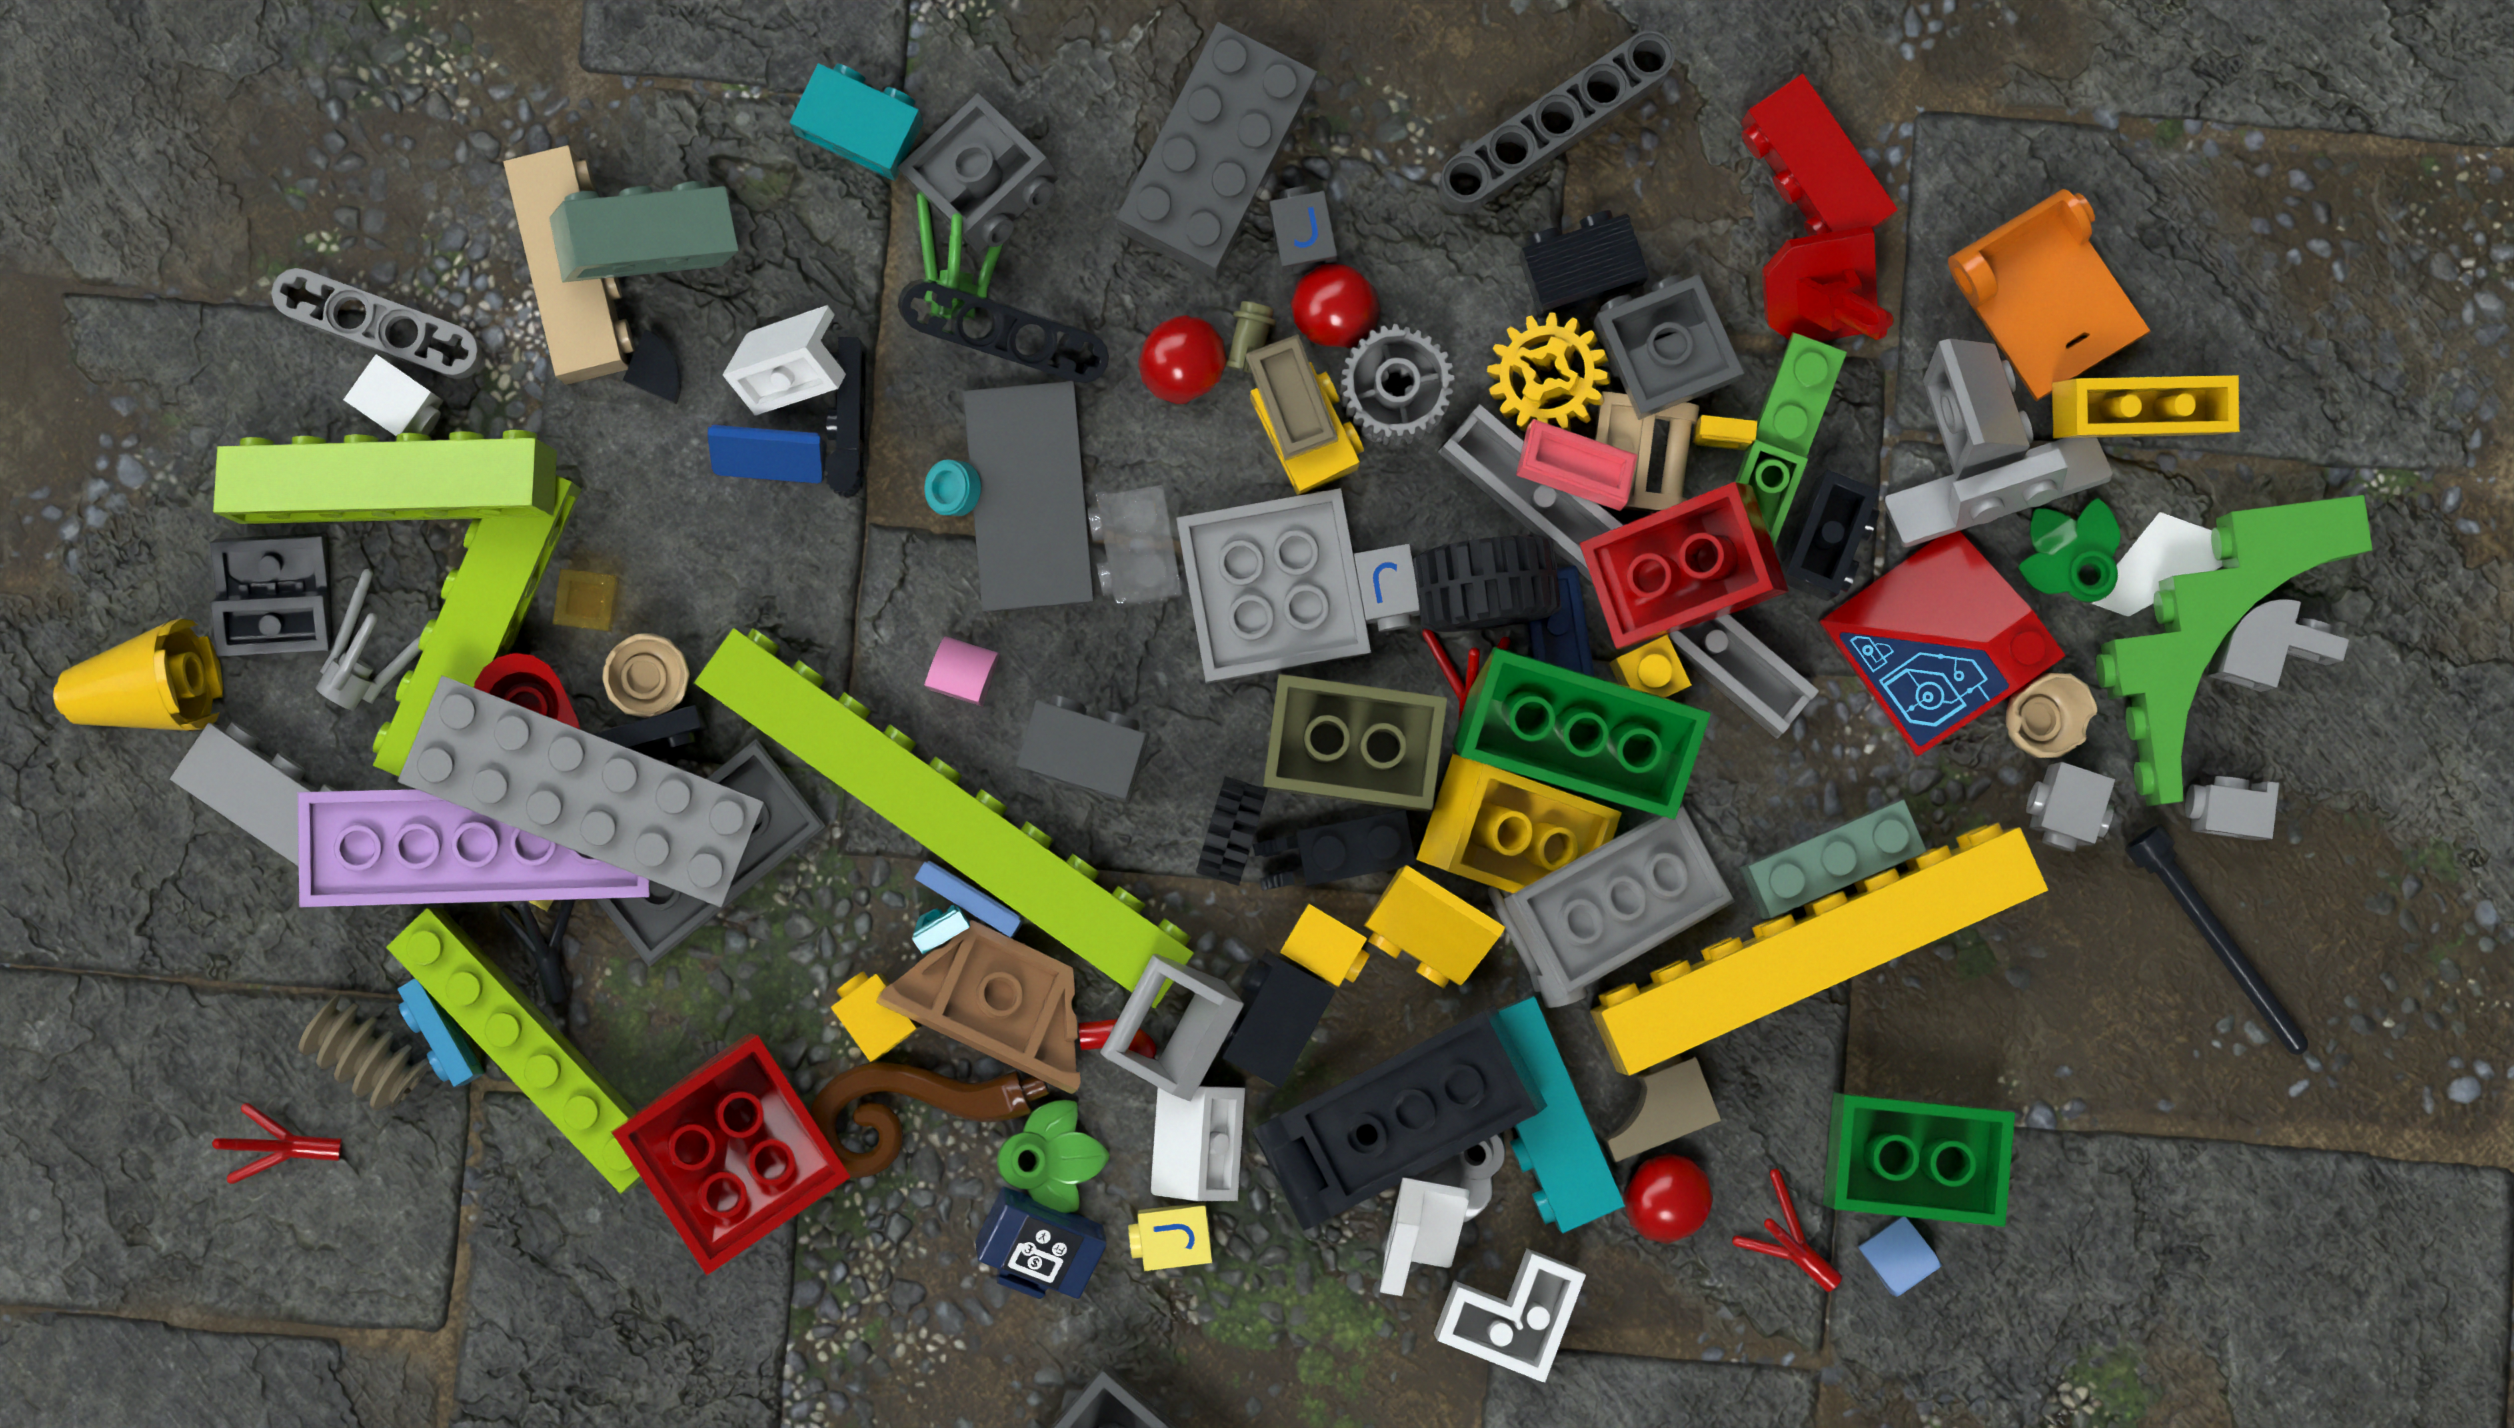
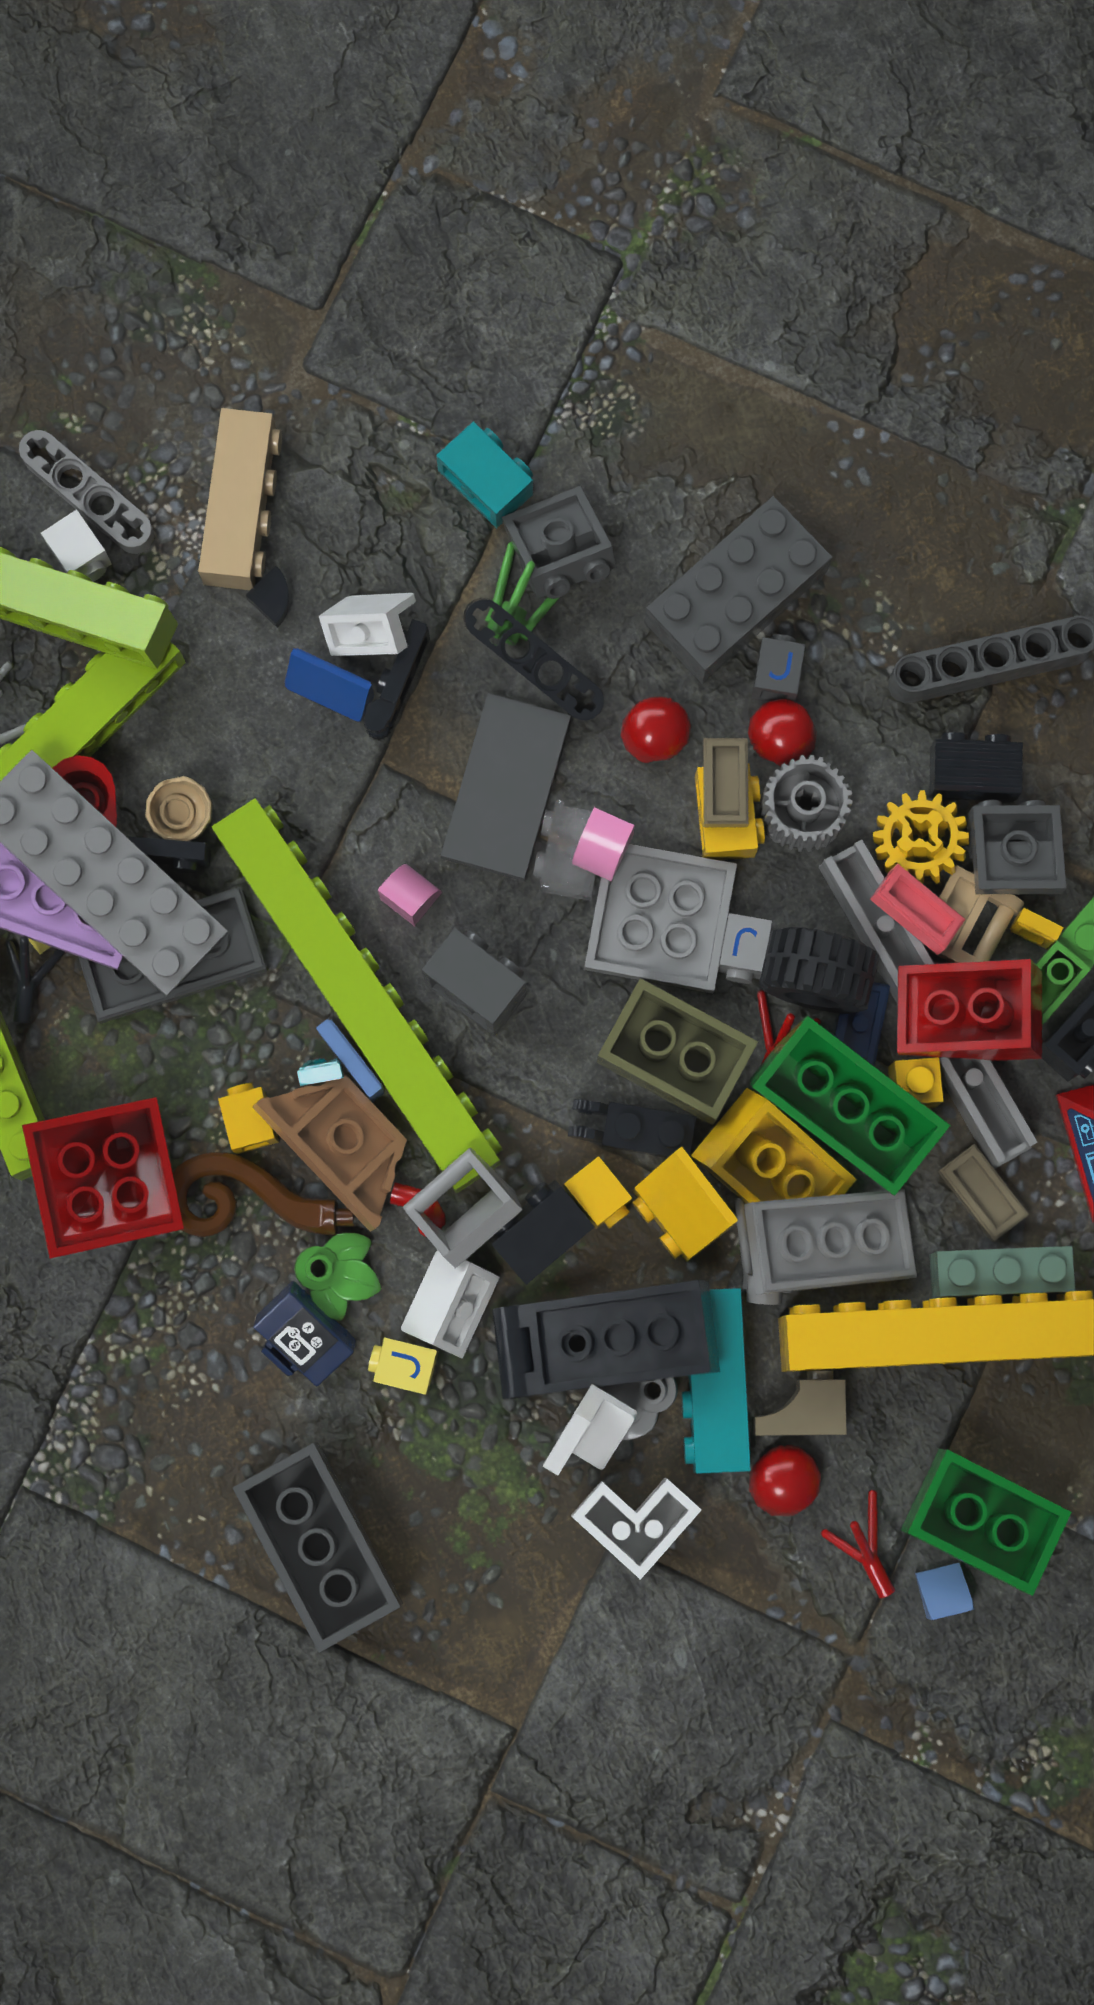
camera: 25 degrees right, 5 degrees down
(586, 600) = (157, 741): clear yellow plate -> none
(643, 231) = (301, 493): sand green brick -> none
(952, 487) = (453, 759): teal tile -> none
(1173, 527) = (603, 844): none -> bright pink brick
(1231, 831) = (562, 1081): black tyre -> none
(1249, 333) = (715, 725): olive pin -> none
(1776, 771) = (983, 1193): none -> dark tan tile

